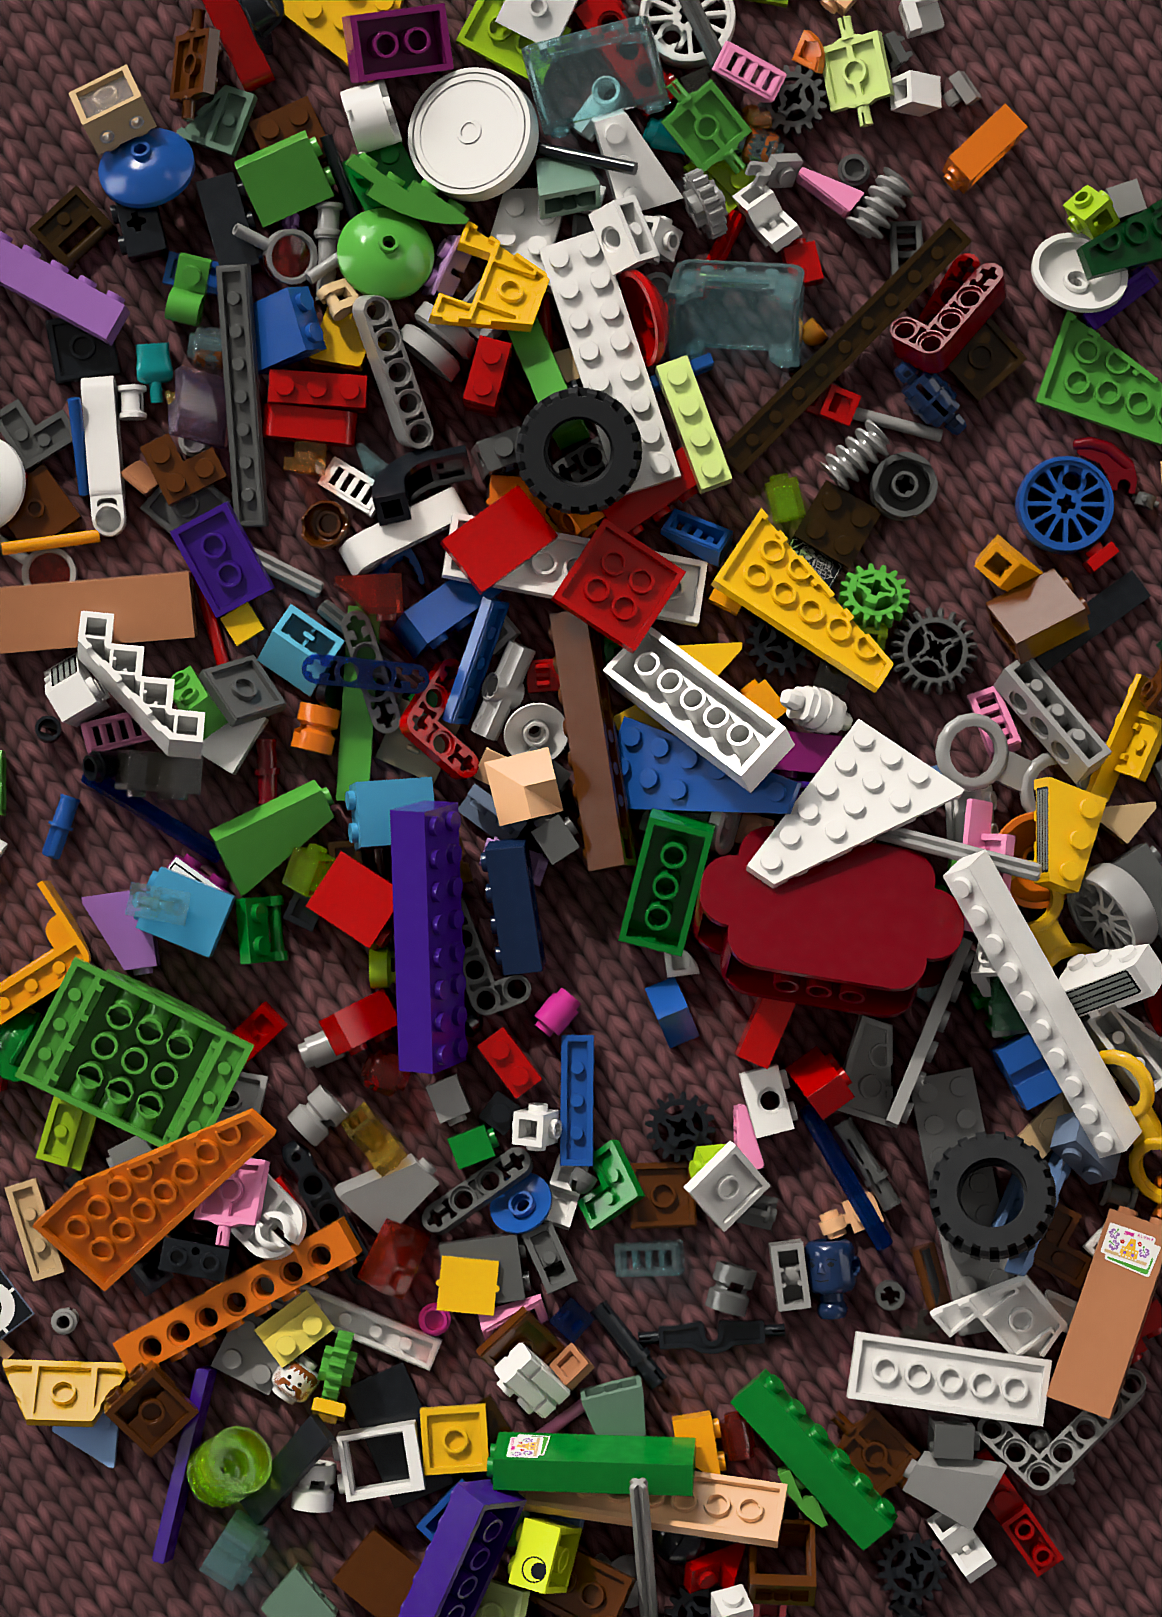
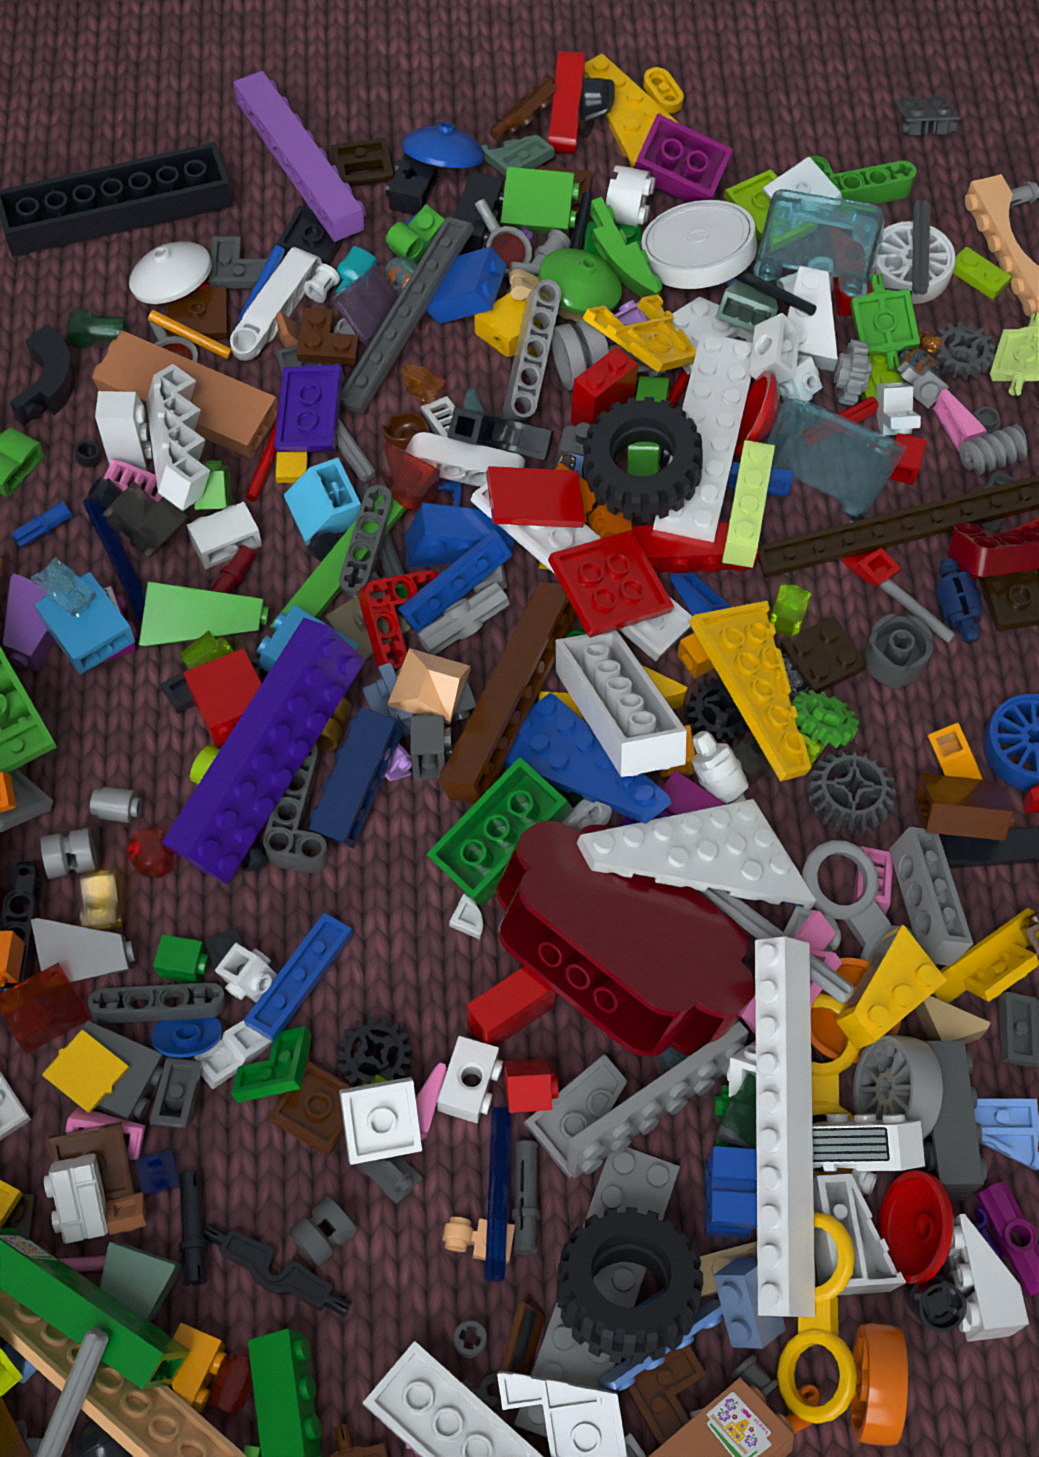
camera: 30 degrees right, 25 degrees down
(112, 110) = (444, 102): tan piece -> none
(242, 690) = (254, 500): dark grey tile -> none
(254, 931) = (128, 676): green plate -> none
(260, 1028) = (66, 764): red slope -> none
(309, 424) = (444, 362): red beam -> none
(316, 728) = (289, 565): orange wheel -> none
(319, 390) = (466, 344): red brick -> none
(359, 1023) = (156, 793): red brick -> none
(365, 677) = (362, 530): clear blue beam -> none
(434, 1321) = (36, 1094): dark pink plate -> none
(449, 1100) = (189, 908): light grey brick -> none
(509, 1062) = (263, 907): red brick -> none
(542, 677) = (500, 630): red tile -> none
(550, 732) = (473, 648): white dish -> none
(557, 1012) = (333, 893): dark pink brick -> none
(581, 1181) = (253, 1044): dark grey hinge -> none
(658, 137) = (844, 323): teal cone -> none
(672, 1012) = (433, 956): blue slope -> none
(677, 1255) = (287, 1171): clear light blue slope -> none
(772, 85) = (953, 305): bright pink slope -> none
(789, 1275) = (386, 1251): light grey brick -> none
(810, 52) = (997, 327): orange tile -> none
(813, 333) = (884, 506): orange hinge -> none
(831, 1272) = (426, 1277): dark blue piece -> none
(856, 454) = (869, 606): light grey piece -> none

